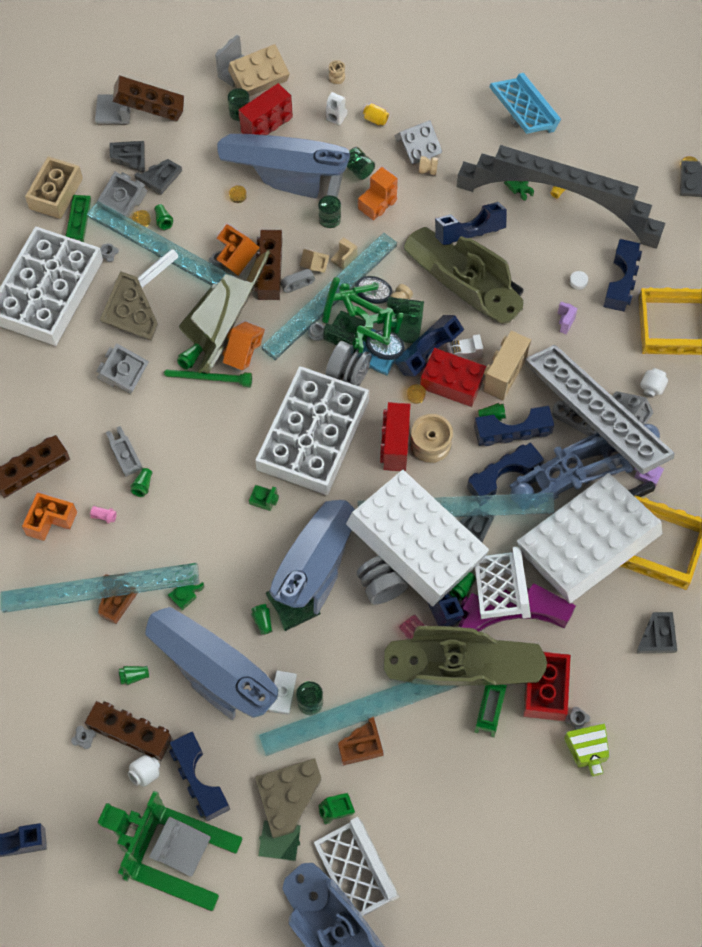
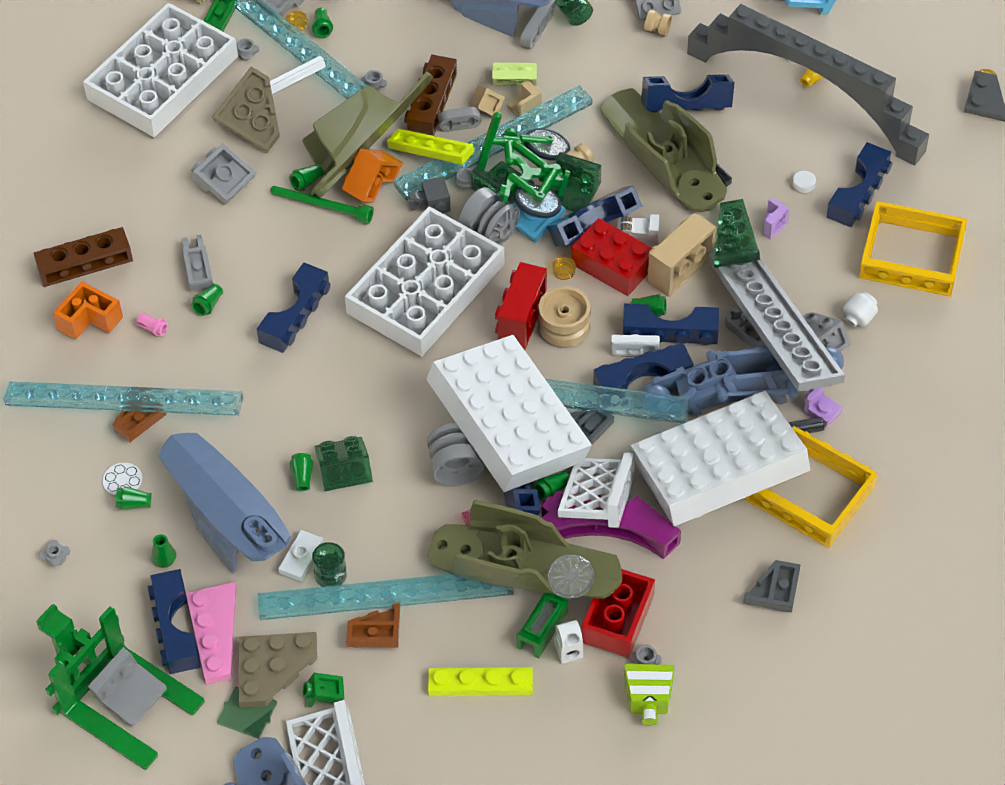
camera: 15 degrees right, 10 degrees down
(118, 655) = (122, 475): none -> white sticker
(144, 770) = (113, 596): white head -> none
(154, 748) = (132, 580): reddish brown brick -> none
(172, 721) = (163, 552): none -> green cone
(184, 595) = (220, 428): green plate -> none
(208, 496) = (280, 328): none -> dark blue arch
(230, 770) = (213, 624): none -> bright pink wing
(237, 194) = (419, 14): clear yellow tile -> none
(237, 249) = (396, 72): orange brick -> none
(264, 497) = (345, 344): green bracket -> none
(283, 310) = (430, 146): none -> neon yellow plate
(297, 353) = (433, 194): none -> dark grey brick
(314, 558) = (378, 416): sand blue piece -> none
(329, 211) = (521, 47): clear green wheel -> none
(329, 232) = (514, 73): none -> yellowish green bracket
(379, 195) = (589, 42): orange brick -> none
(455, 769) = (480, 681): none -> neon yellow plate
(491, 450) = (633, 344): none -> white plate
(507, 669) = (571, 576): none -> clear wheel
(516, 721) = (569, 639): none -> white leg
(521, 187) = (762, 63): green plate -> none
(545, 344) = (734, 236): none -> clear green wing

